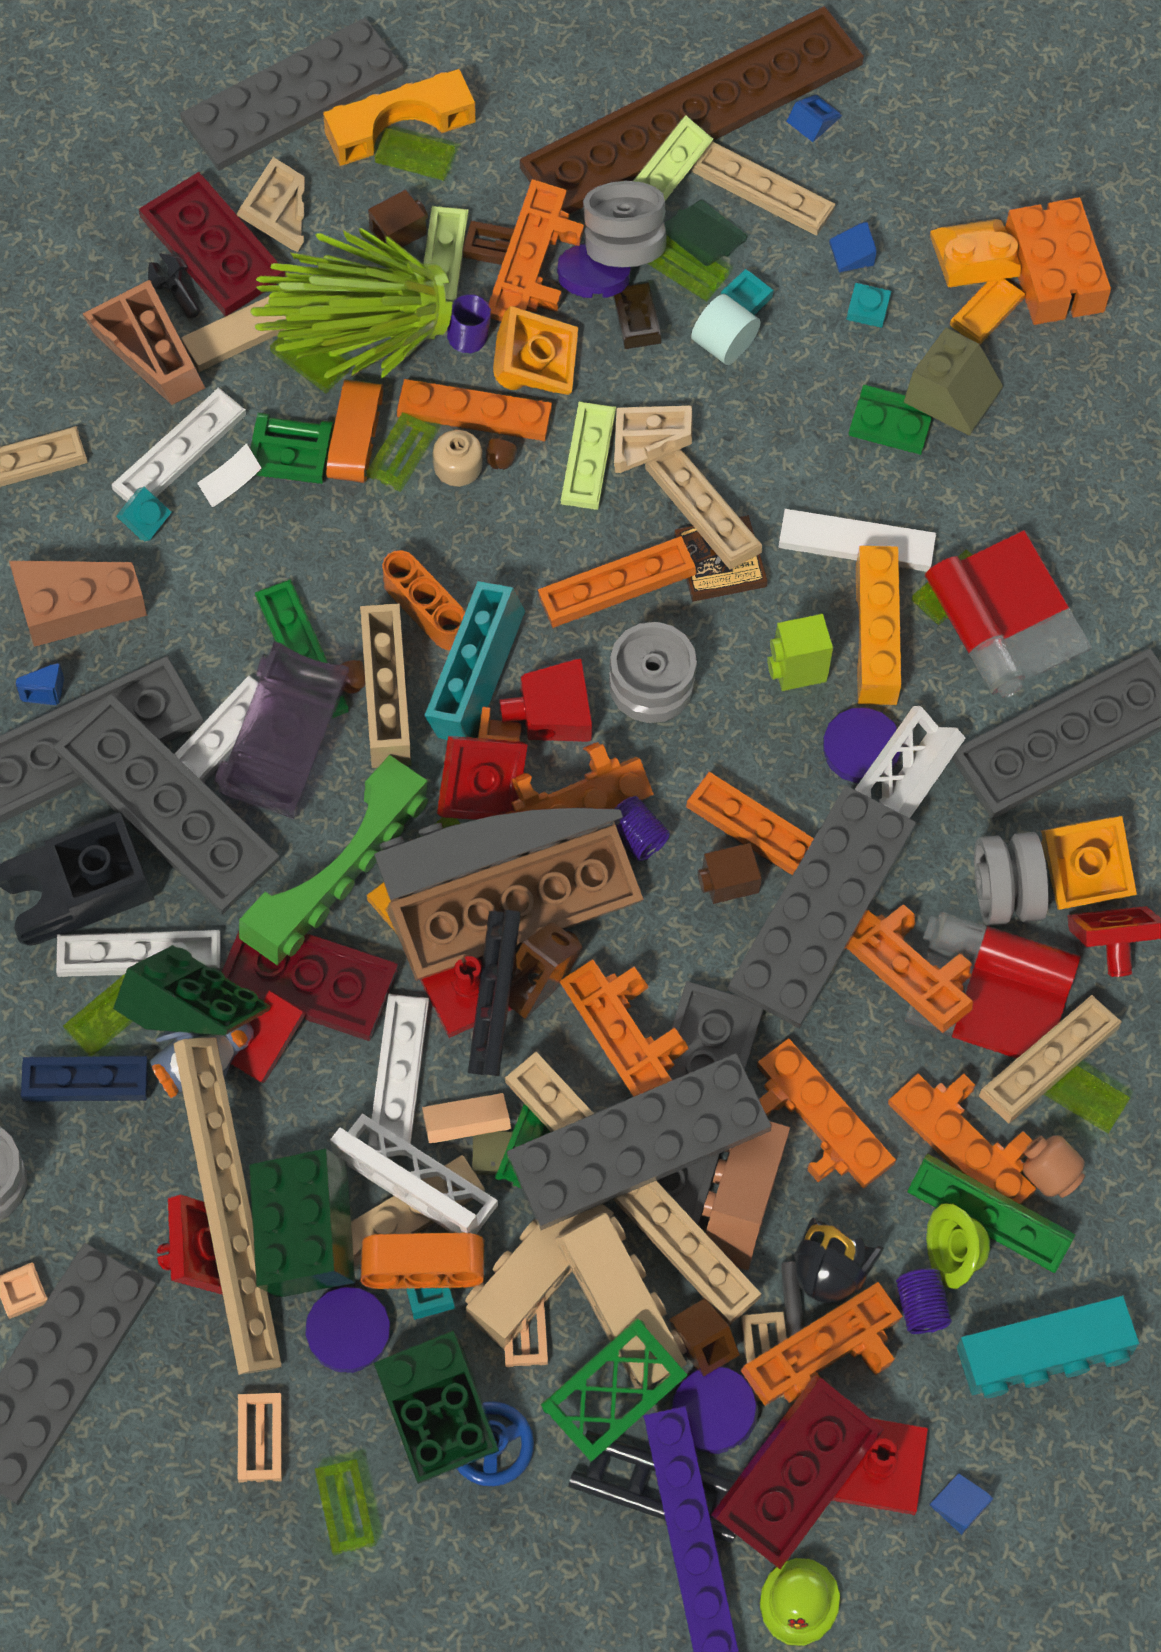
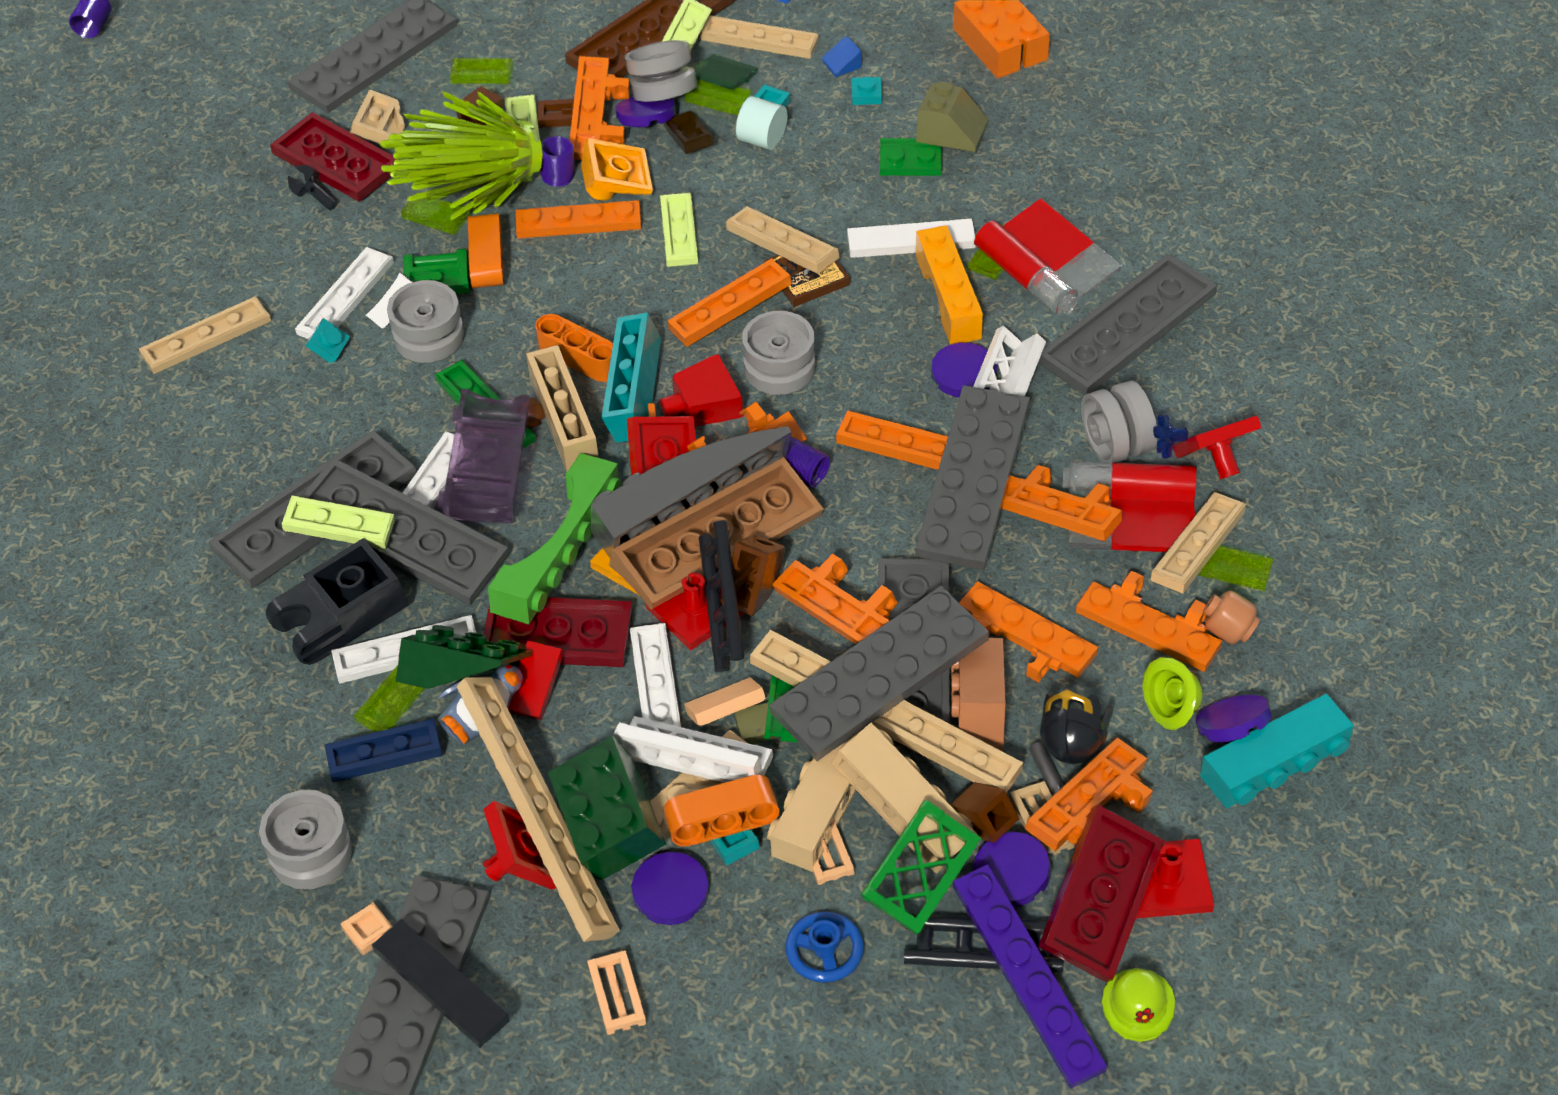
camera: 10 degrees left, 15 degrees down
(41, 685) = (271, 474): blue slope -> none
(76, 597) = (285, 406): nougat wedge -> none
(78, 1384) = (441, 983): none -> black tile
(97, 781) = (337, 521): none -> yellowish green tile
(146, 340) = (299, 225): nougat wedge -> none
(228, 336) = (371, 210): tan tile -> none
(260, 520) = (425, 321): none -> light grey wheel
(352, 1542) = (723, 1057): clear neon green tile -> none
(374, 470) = (523, 276): clear neon green tile -> none
(436, 1406) = (767, 918): dark green slope -> none
(439, 101) = (489, 32): light orange arch -> none
(457, 458) = (574, 248): tan head -> none
(500, 453) = (608, 240): reddish brown hinge -> none
(650, 433) = (724, 201): tan wing -> none
(730, 873) = (889, 476): reddish brown brick -> none
(800, 652) = (894, 311): lime piece -> none
(923, 1301) = (1158, 740): dark purple piece -> none
(961, 1503) = (1250, 890): blue slope -> none
(976, 252) = (937, 39): light orange slope -> none
(987, 309) = (961, 69): light orange tile -> none
(1000, 1216) = (1212, 668): green tile -> none
(1012, 1294) = (1233, 717): none -> dark purple tile
(1058, 914) = (1168, 435): none -> clear blue plant
(1088, 862) = (1182, 397): light orange slope -> none

